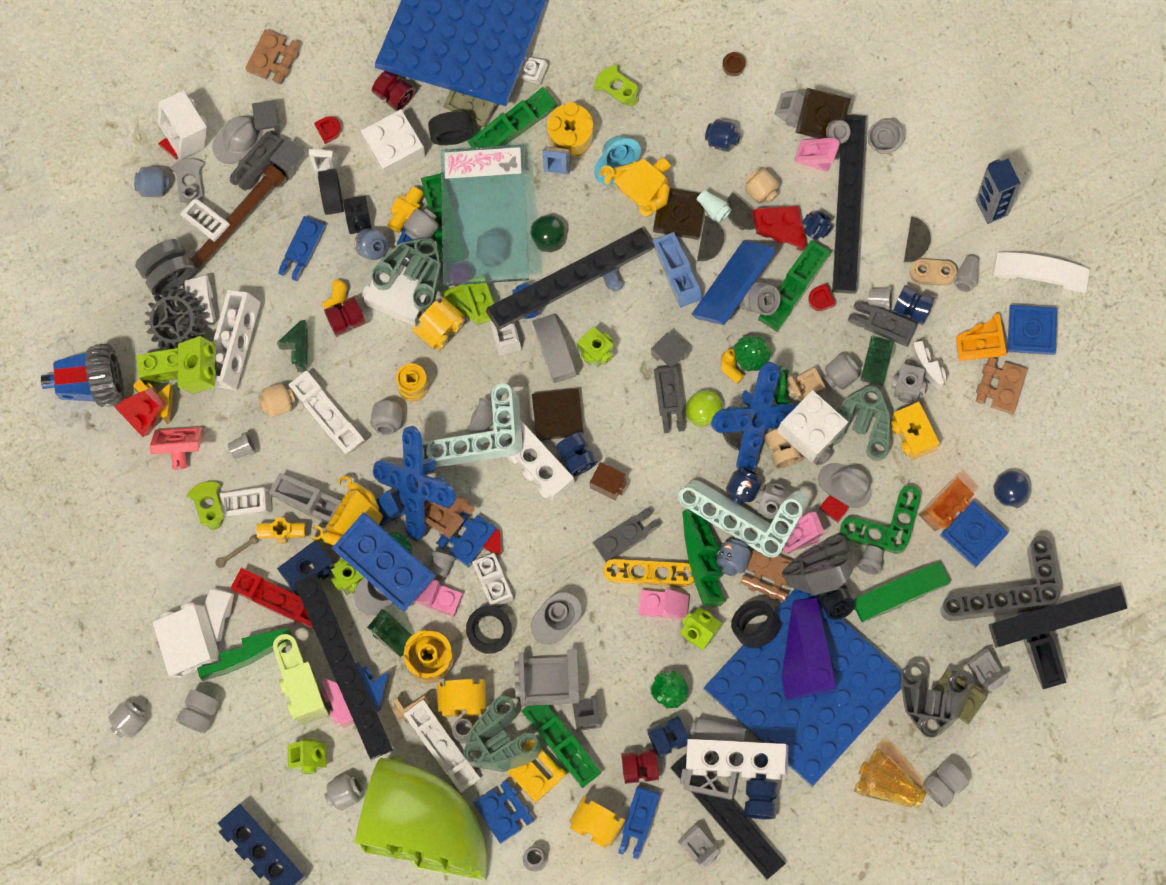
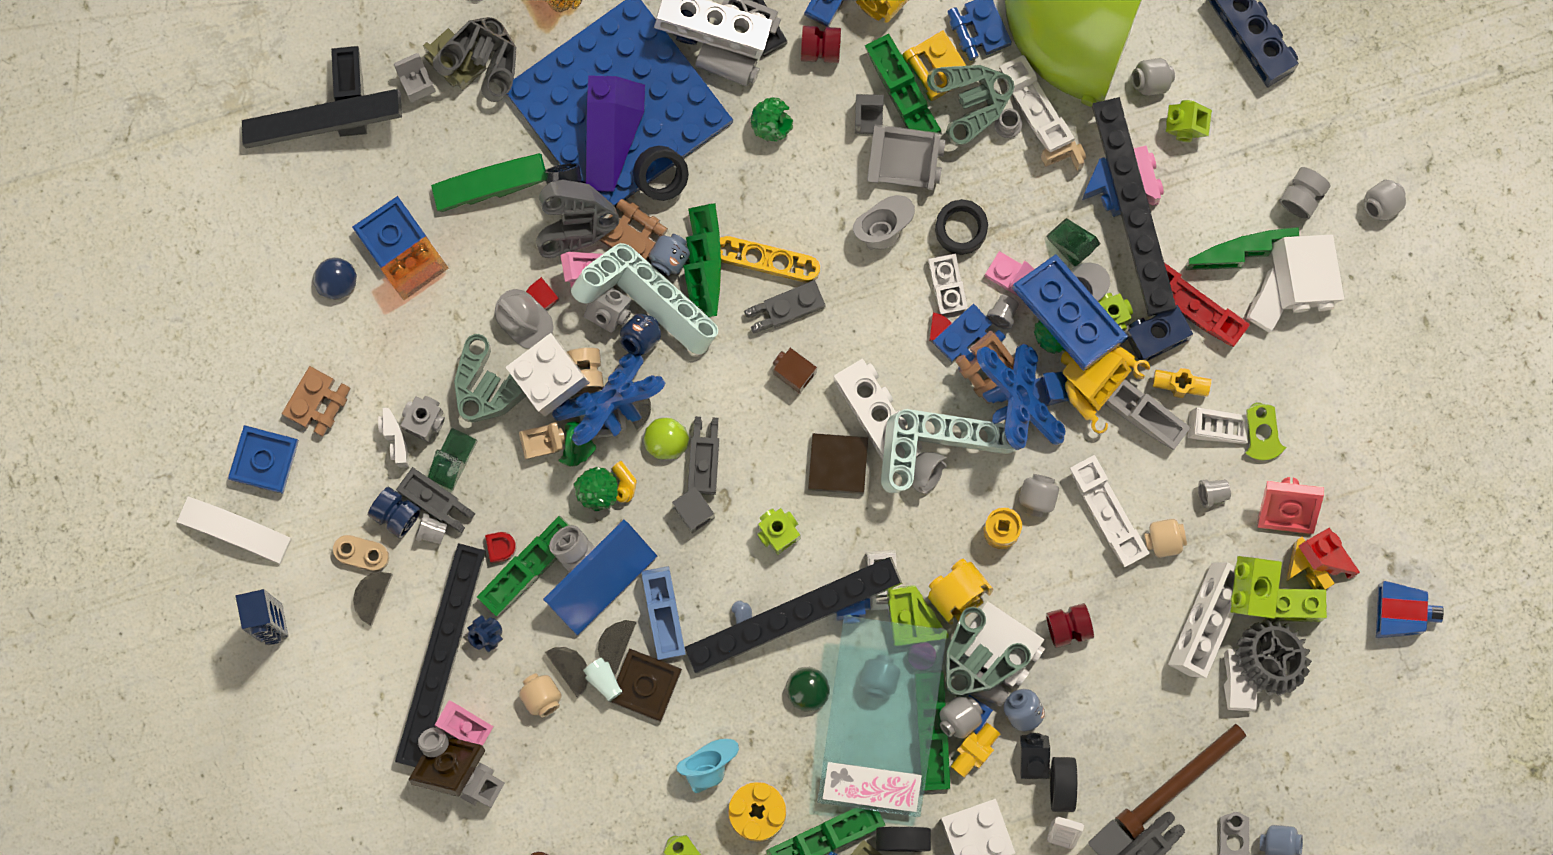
camera: 170 degrees left, 5 degrees up
(104, 375) = (1367, 598): dark grey gear -> none
(165, 266) = (1277, 722): dark grey wheel -> none
(193, 209) = (1238, 796): white slope -> none
(220, 562) = (1256, 363): dark tan hinge -> none
(297, 341) = (1131, 609): clear green slope -> none
(299, 682) = (1186, 199): yellowish green brick -> none
(302, 246) = (1107, 729): blue hinge -> none
(338, 294) = (1074, 656): yellow arm -> none
(433, 644) = (1040, 190): yellow brick -> none
(461, 696) = (1006, 151): yellow brick -> none
(554, 348) = (827, 539): light grey slope -> none
(556, 160) = (781, 769): medium blue slope -> none
(575, 452) = (827, 416): dark blue wheel -> none
(641, 183) = (682, 721): yellow torso -> none
(660, 739) = (783, 70): dark blue wheel -> none
(663, 604) = (758, 221): bright pink slope -> none
(700, 628) = (723, 181): lime brick -> none
(722, 135) = (573, 770): dark blue head -> none
(781, 225) = (527, 643): red wing -> none
(841, 372) = (497, 448): light grey head -> none
(871, 560) = (514, 225): light grey piece -> none
(885, 136) = (377, 729): light grey hair -> none
(887, 533) = (488, 254): green beam -> none
(916, 419) = (420, 349): yellow brick -> none
(966, 276) = (321, 541): light grey cone -> none
(982, 341) = (324, 455): light orange wing -> none
(1011, 594) = (366, 158): dark grey beam -> none

